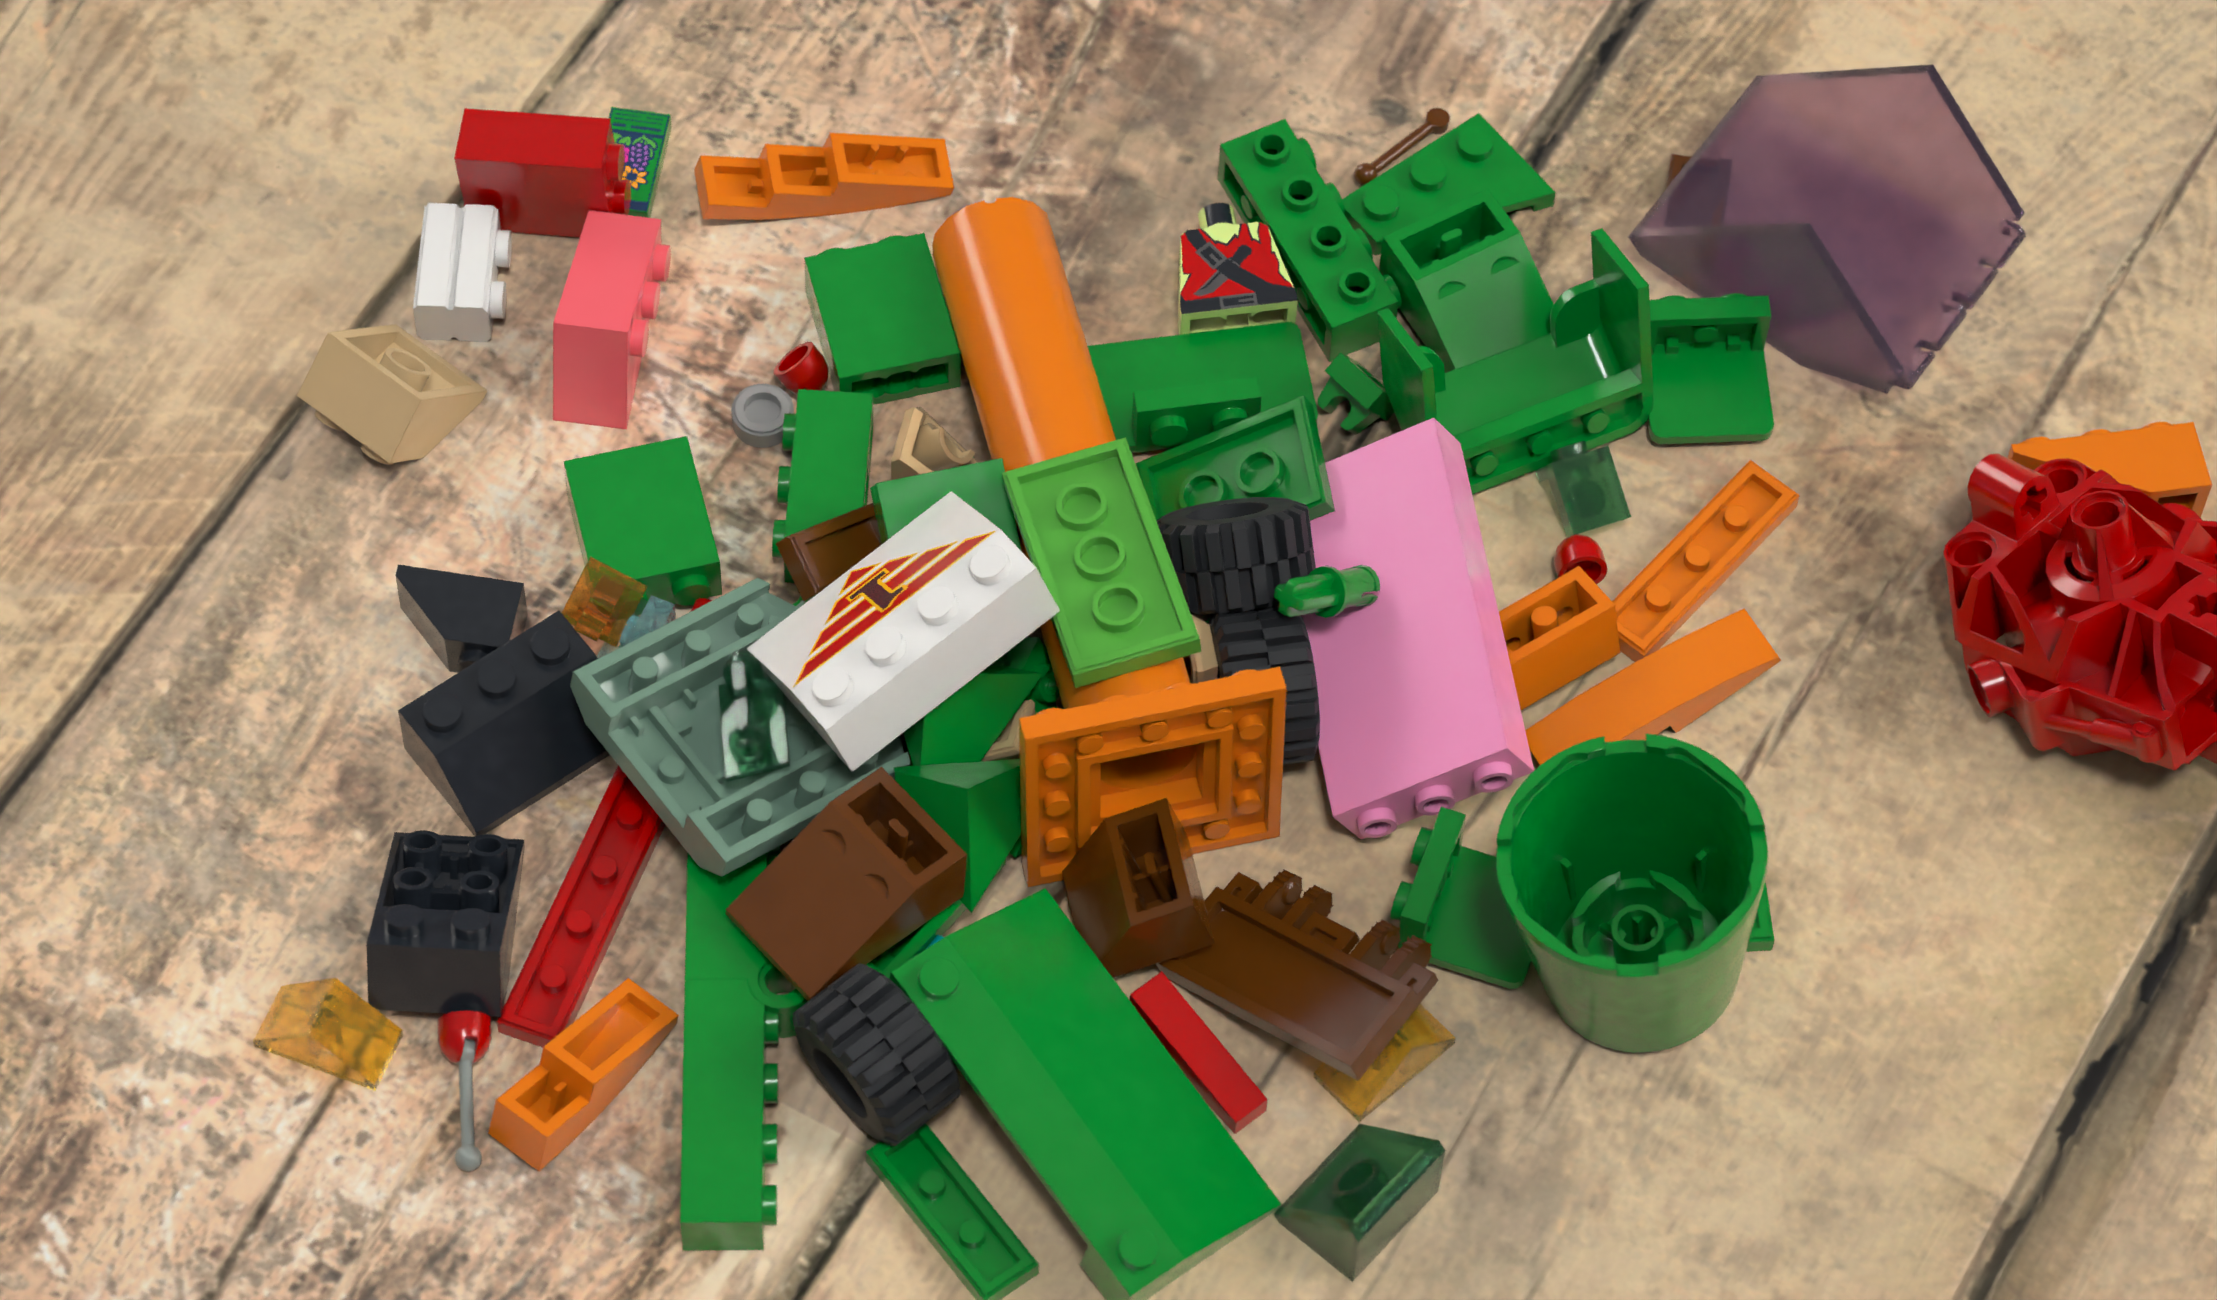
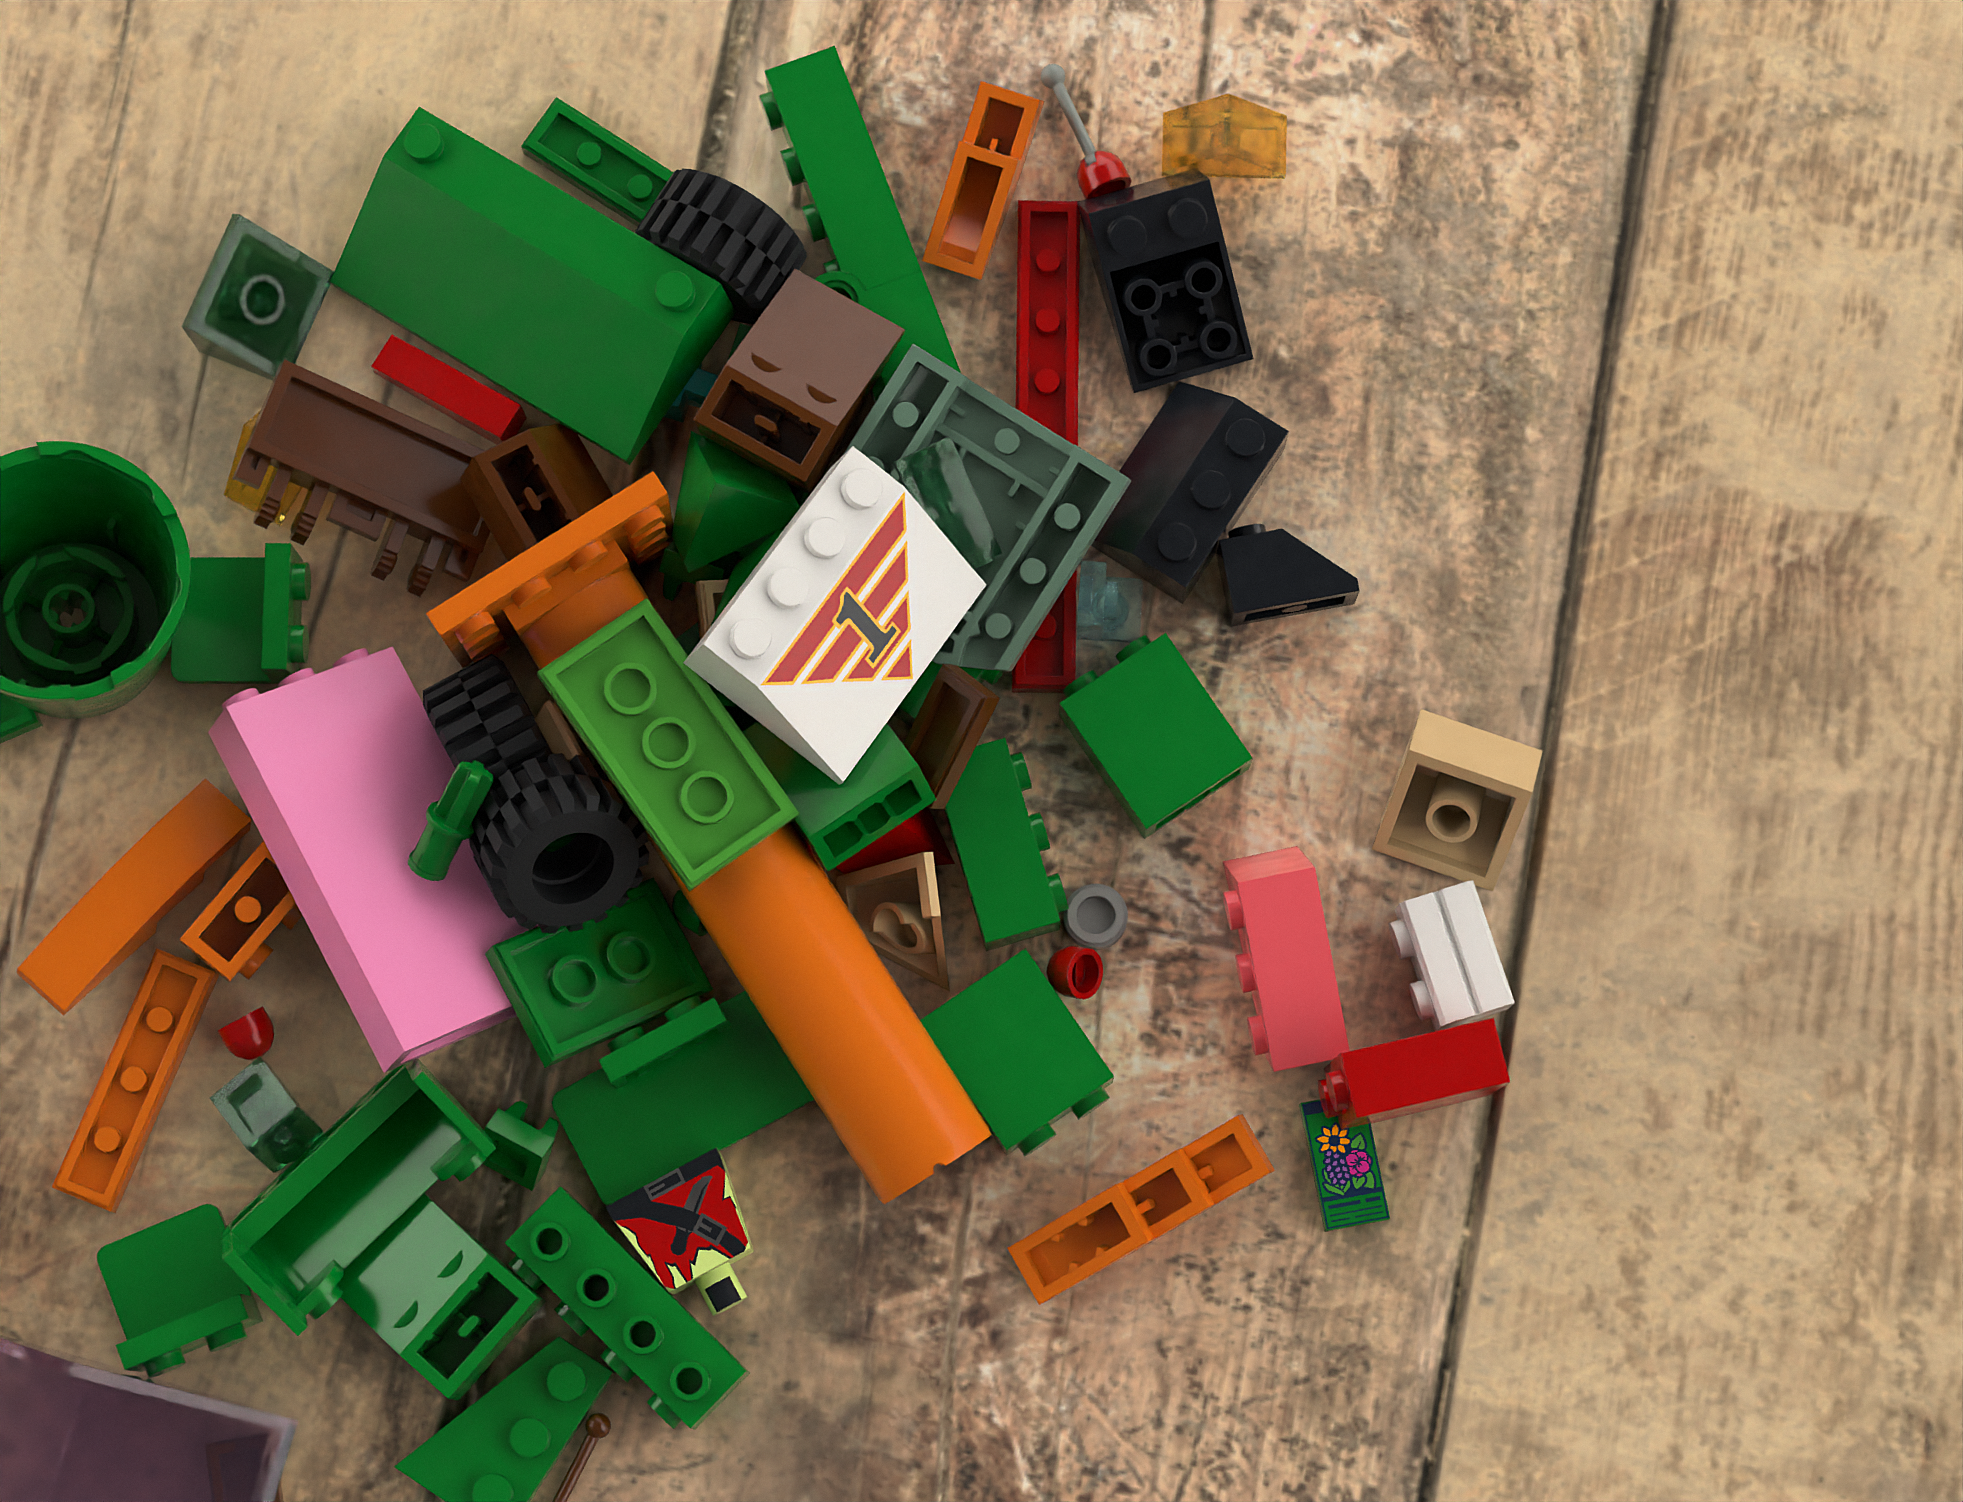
camera: 165 degrees right, 20 degrees up
(602, 602) = (1150, 613): clear orange tile -> none

